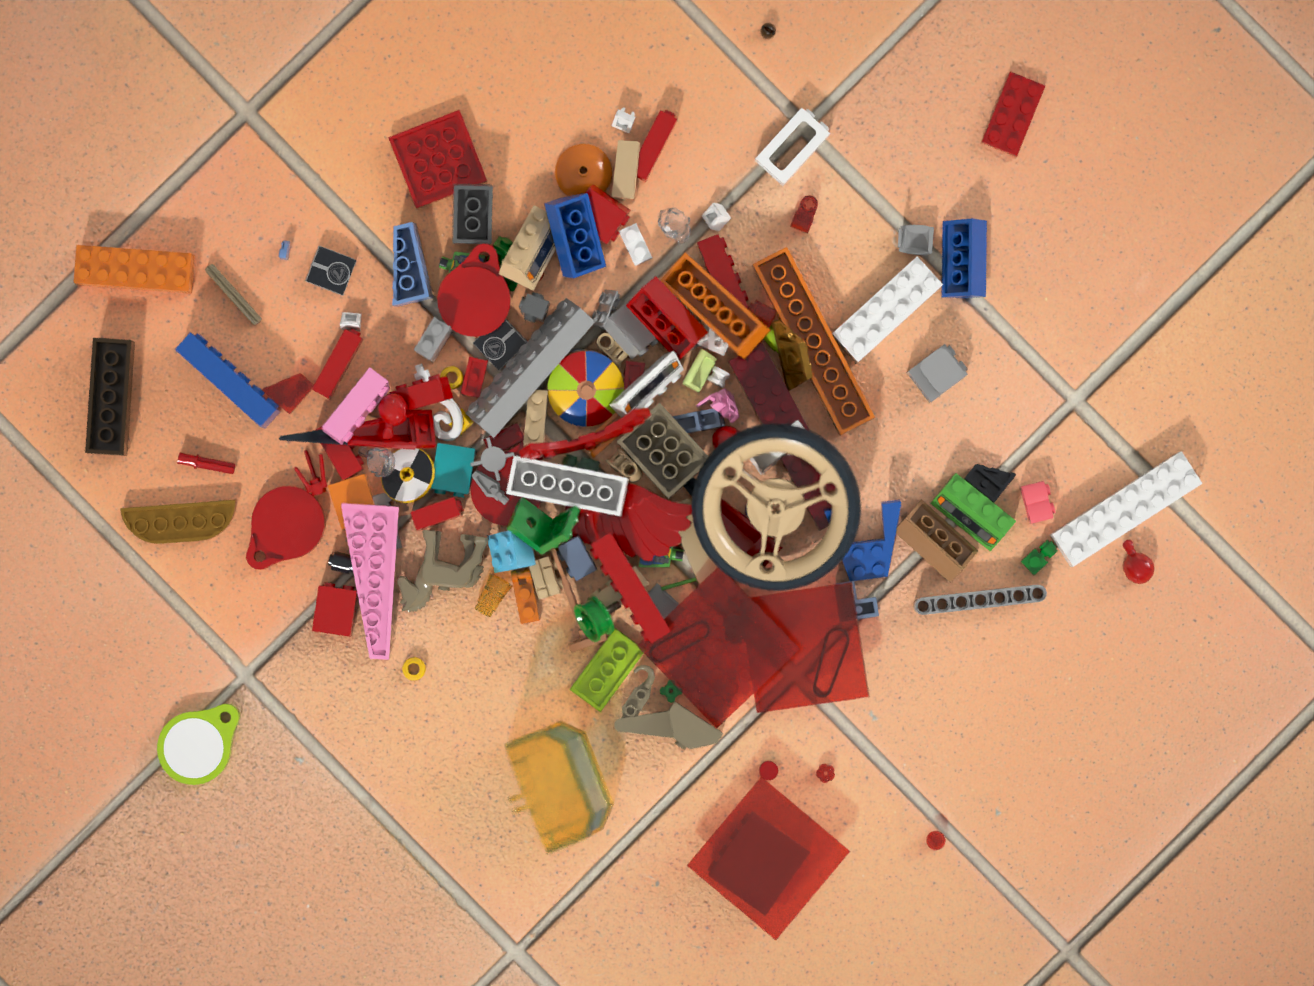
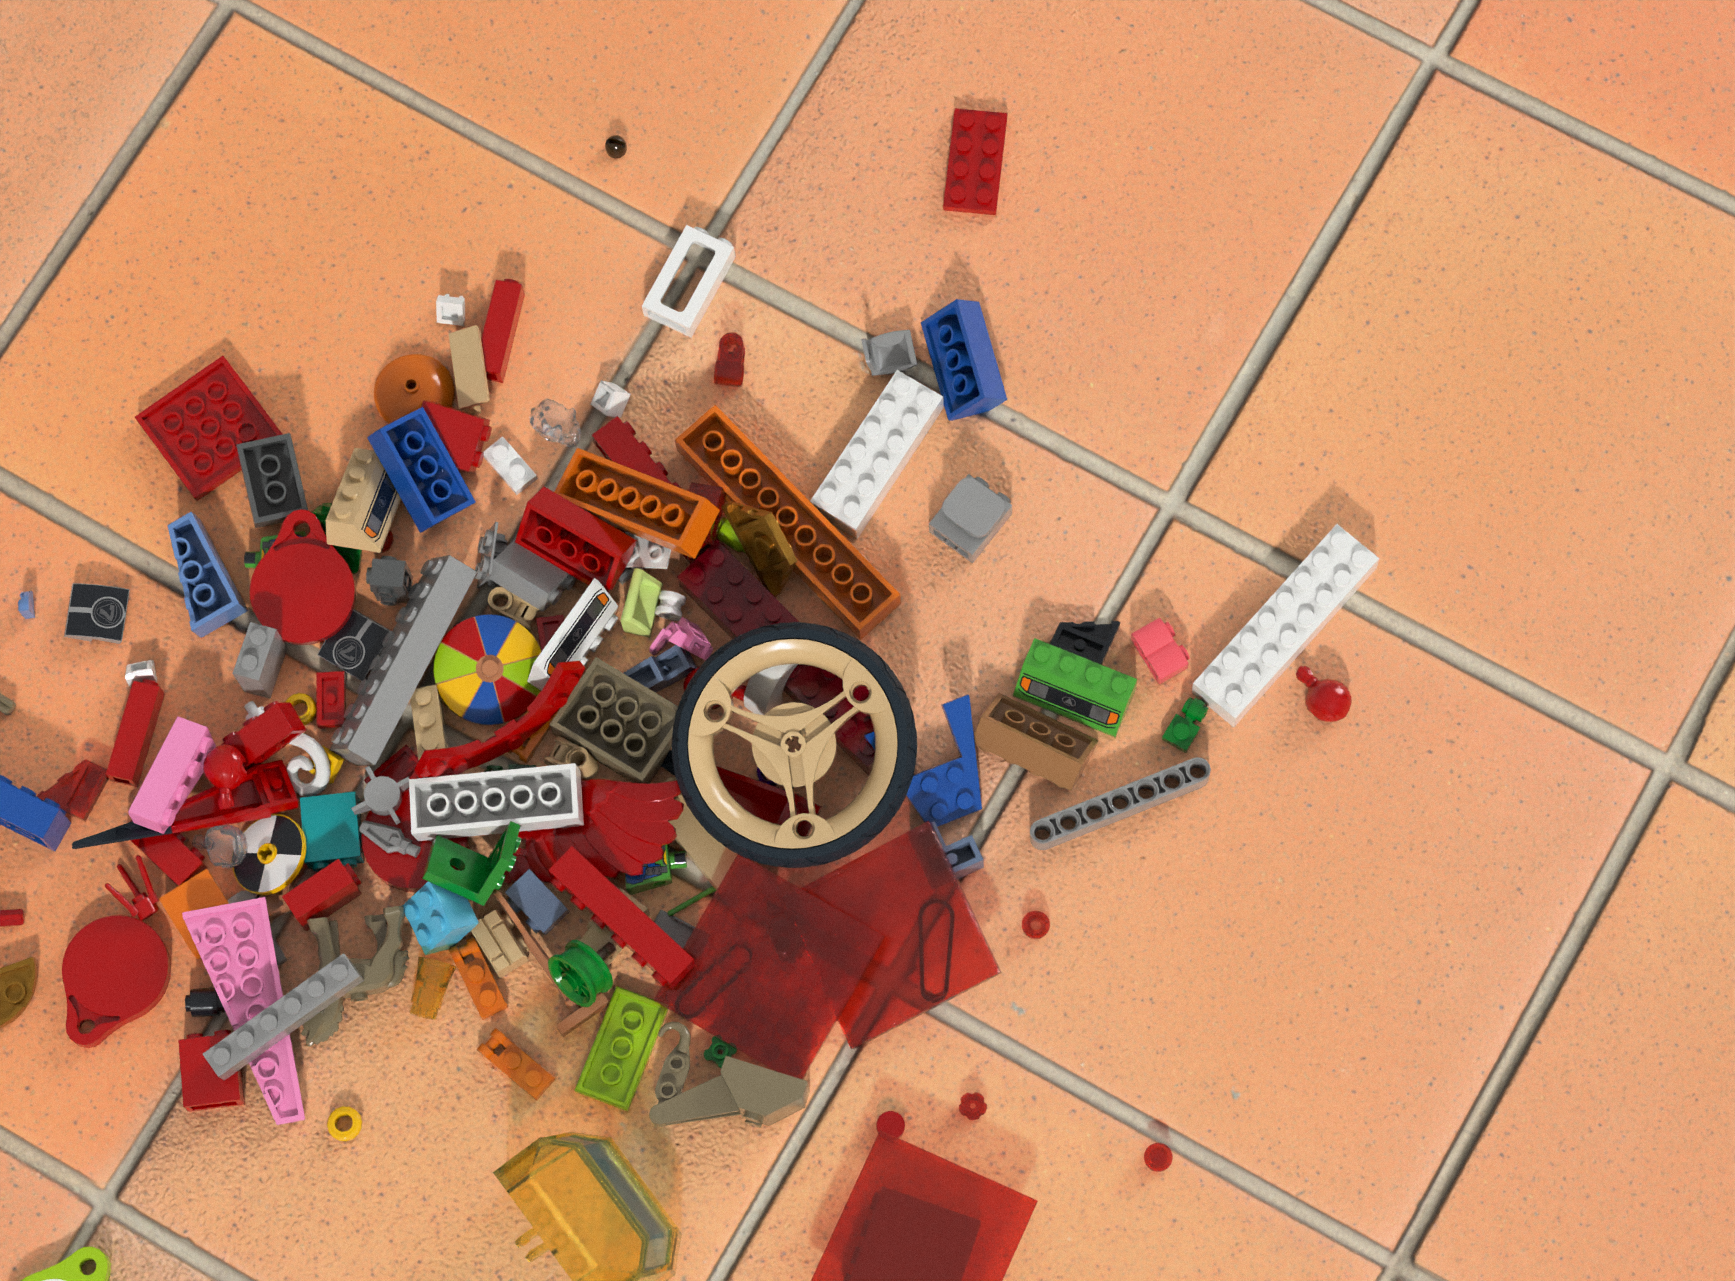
camera: 10 degrees left, 15 degrees down
(391, 593) = (283, 1017): none -> light grey brick
(535, 661) = (516, 1065): none -> orange plate
(907, 664) = (1035, 916): none -> clear red plate

